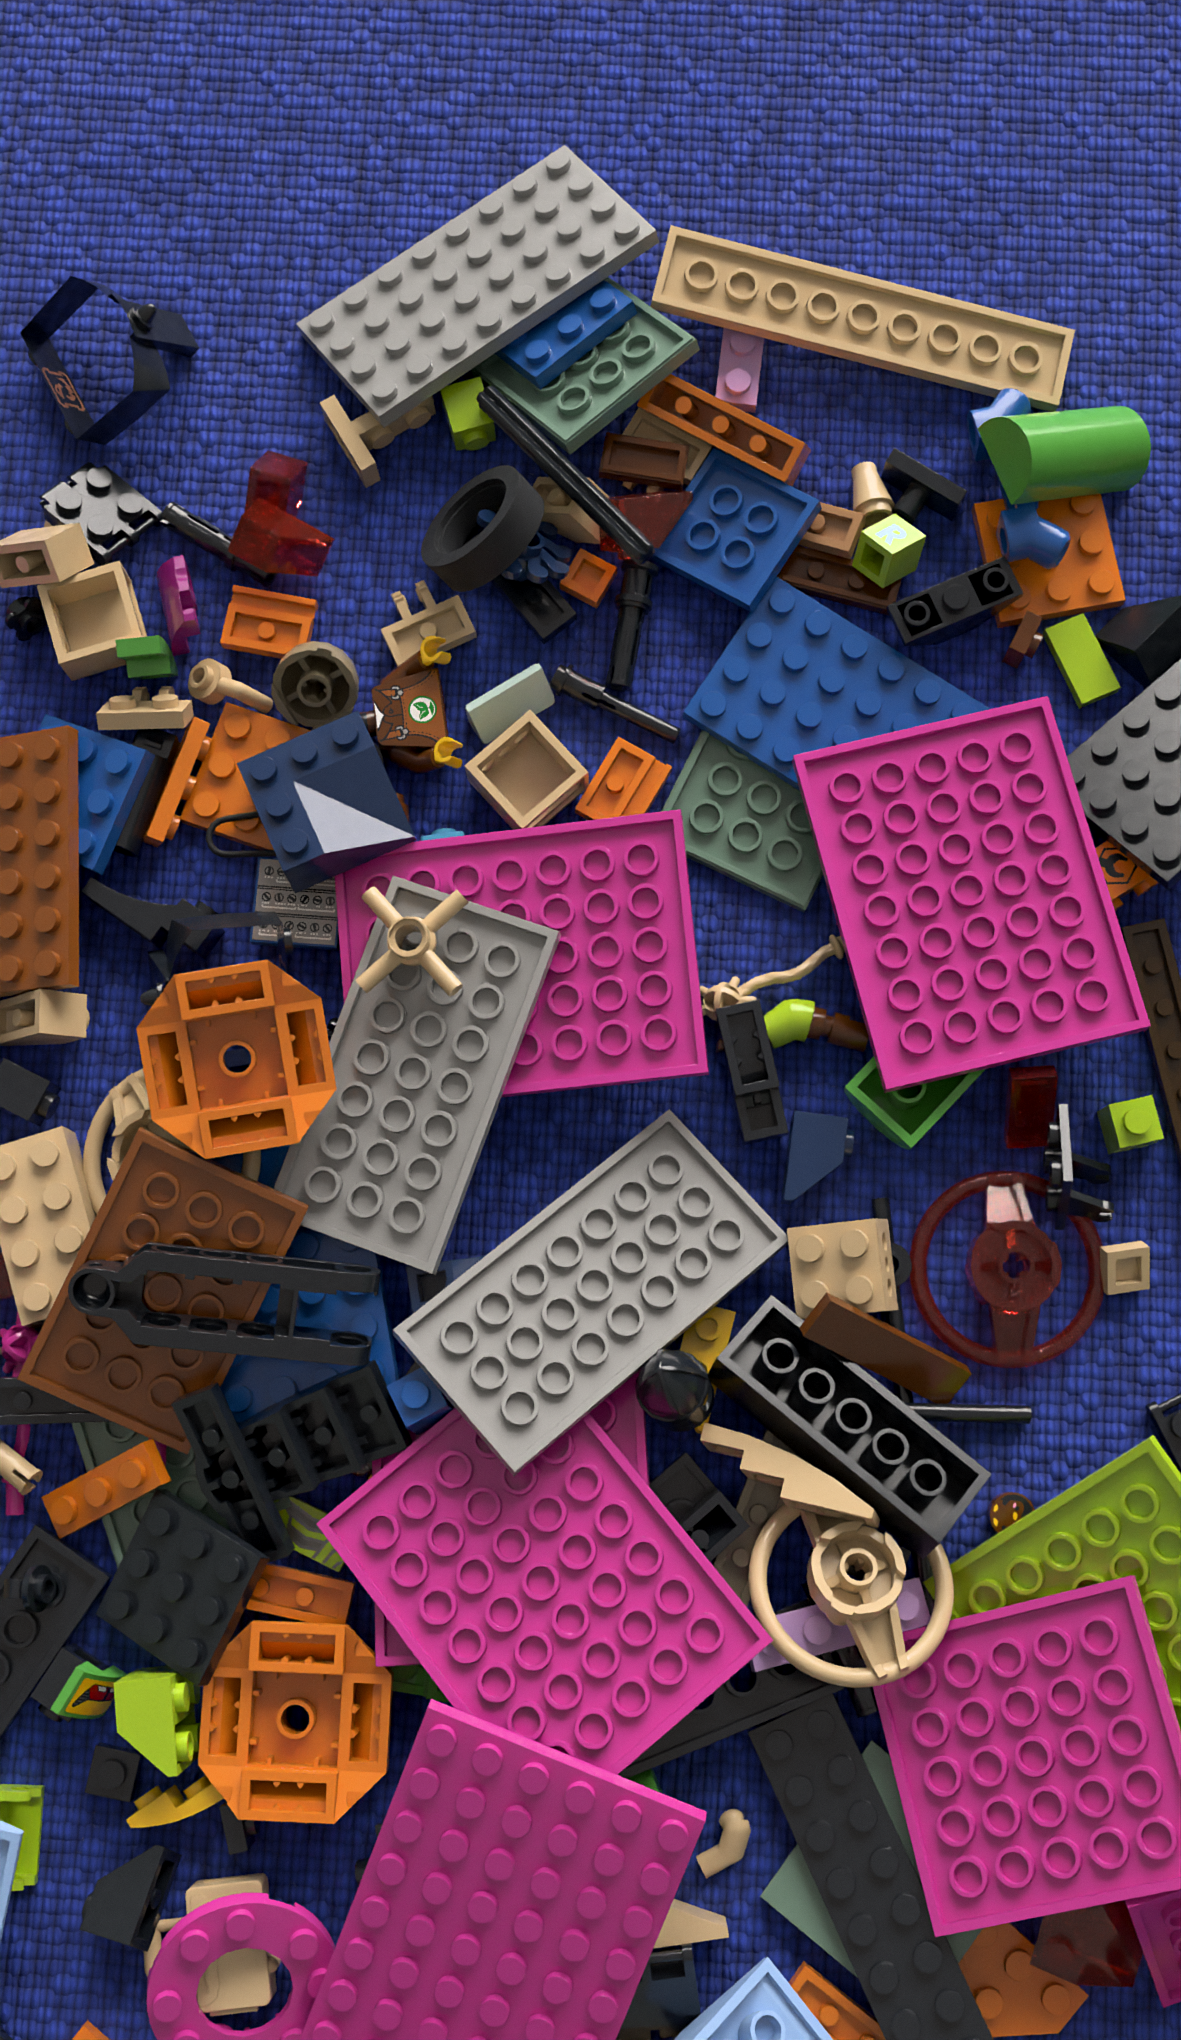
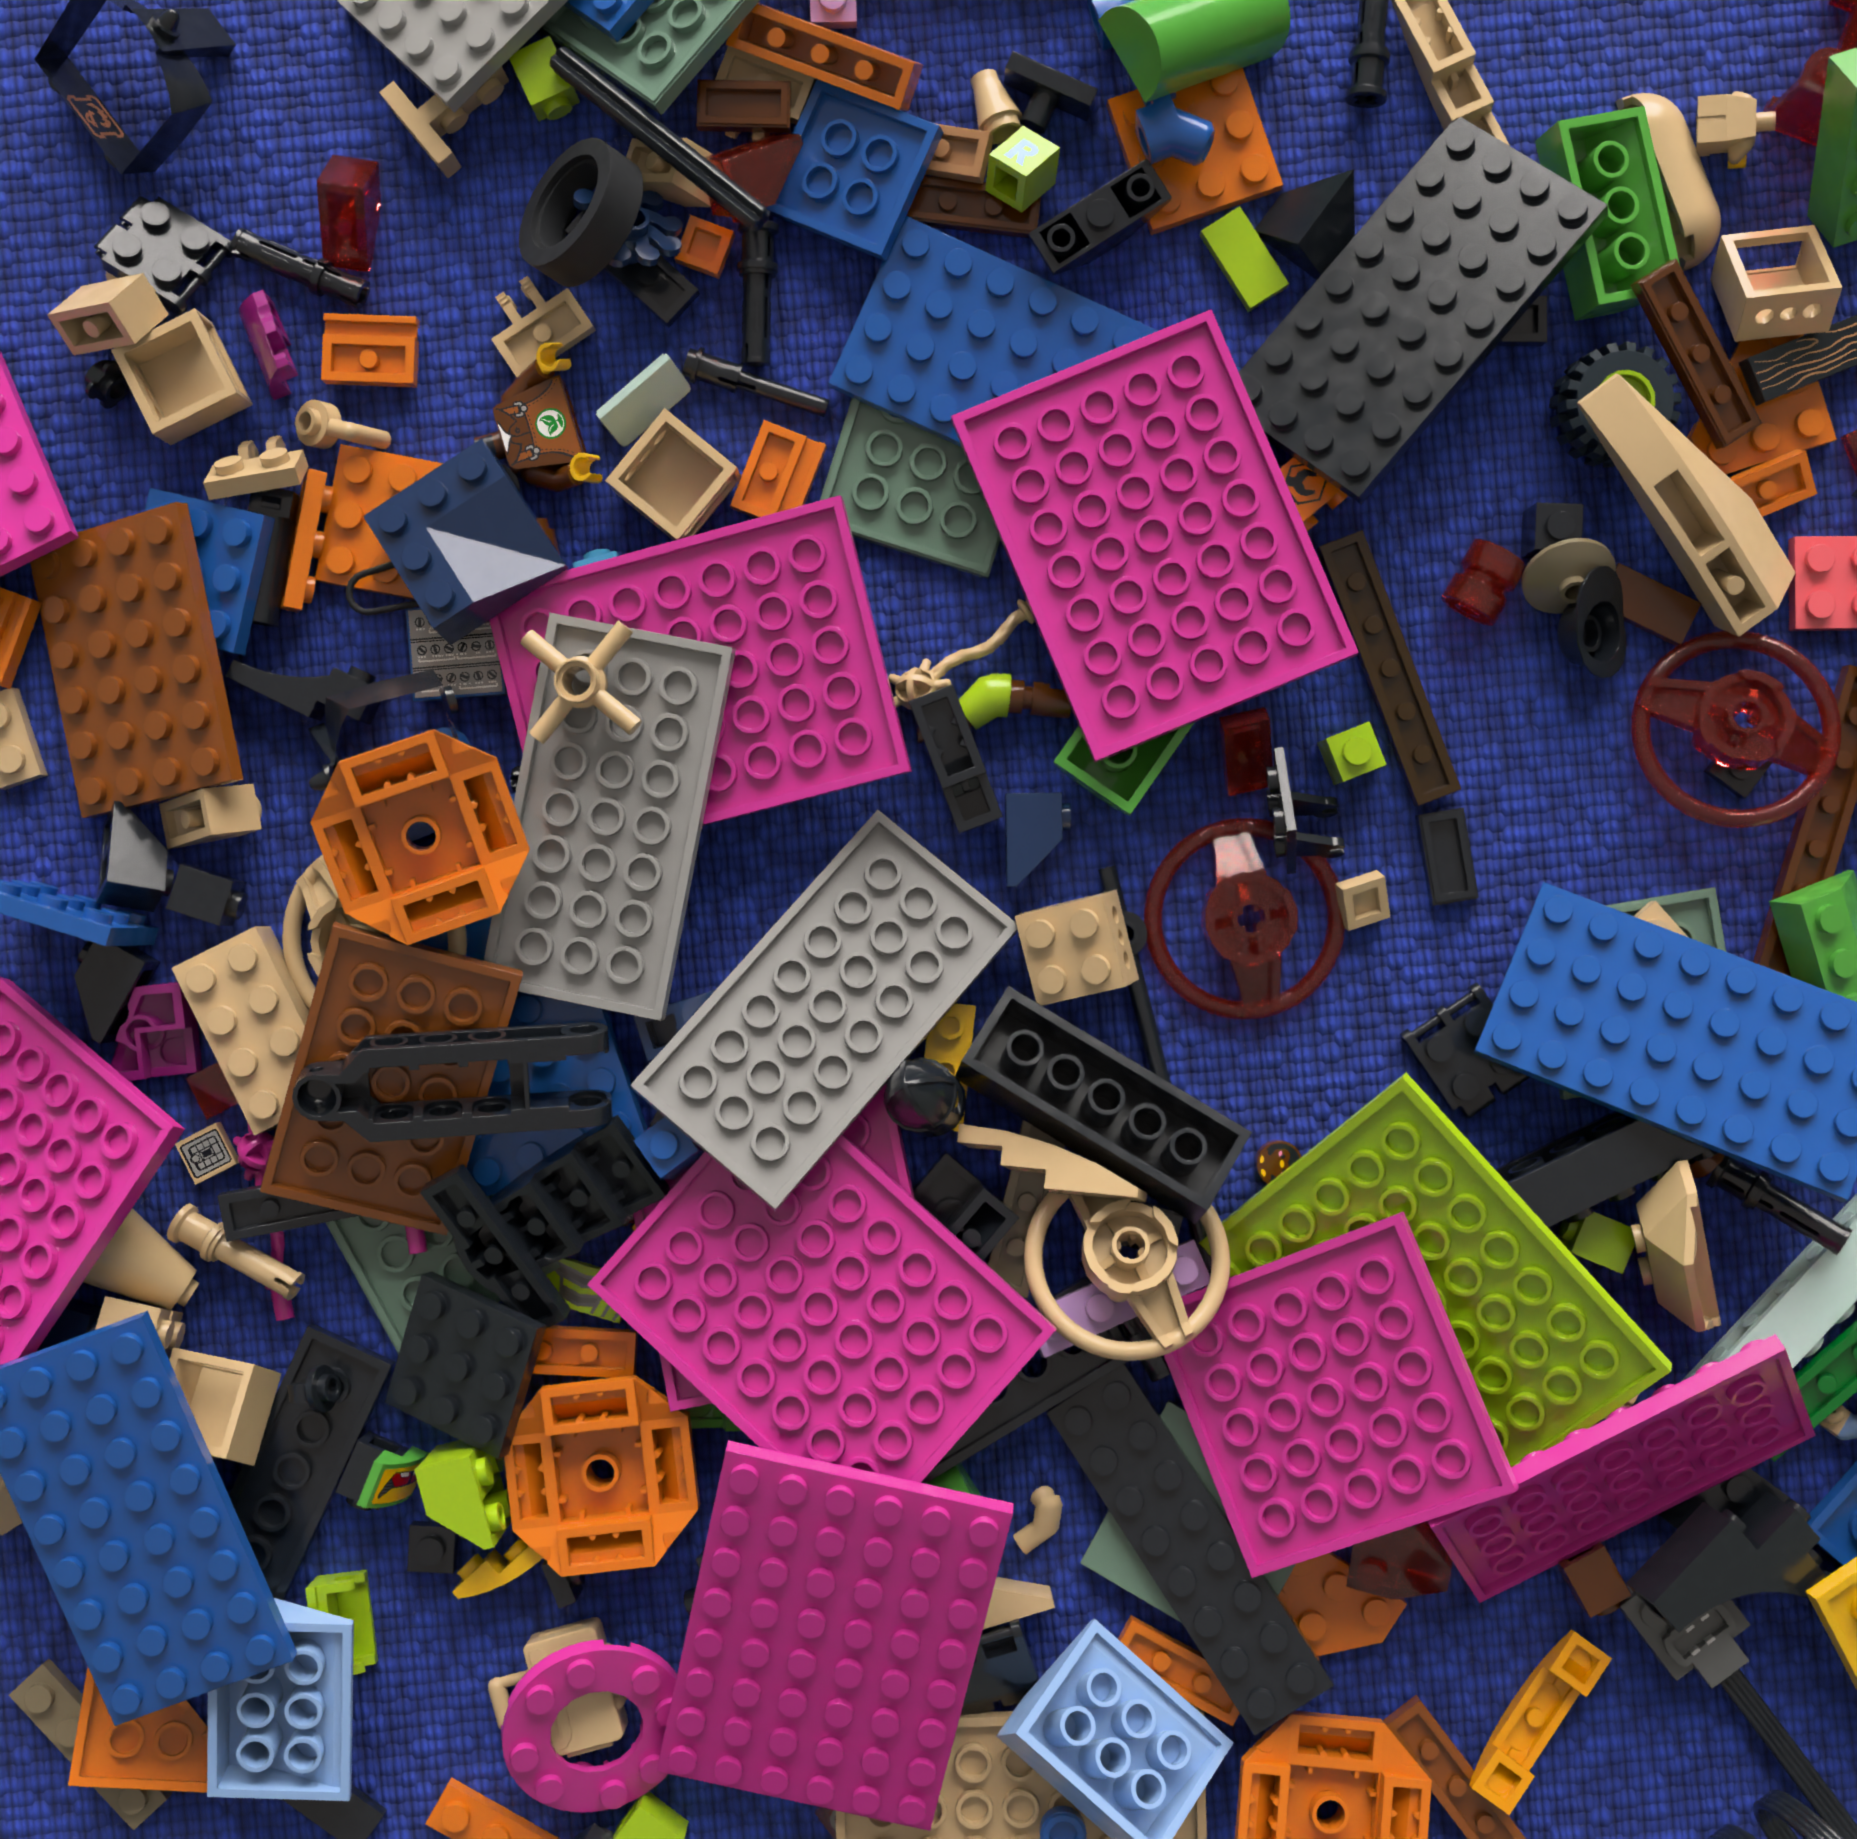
camera: 15 degrees left, 10 degrees up
(106, 1488) = (371, 1280): orange plate -> none
(131, 1898) = (472, 1663): black slope -> none
(147, 657) = (246, 411): bright green slope -> none
(279, 541) = (364, 258): clear red slope -> none
(315, 684) = (432, 413): dark tan cylinder -> none
(884, 1350) = (1130, 1024): reddish brown tile -> none
(973, 1413) = (1224, 1069): black bar -> none
(1025, 640) = (1181, 247): reddish brown plate -> none

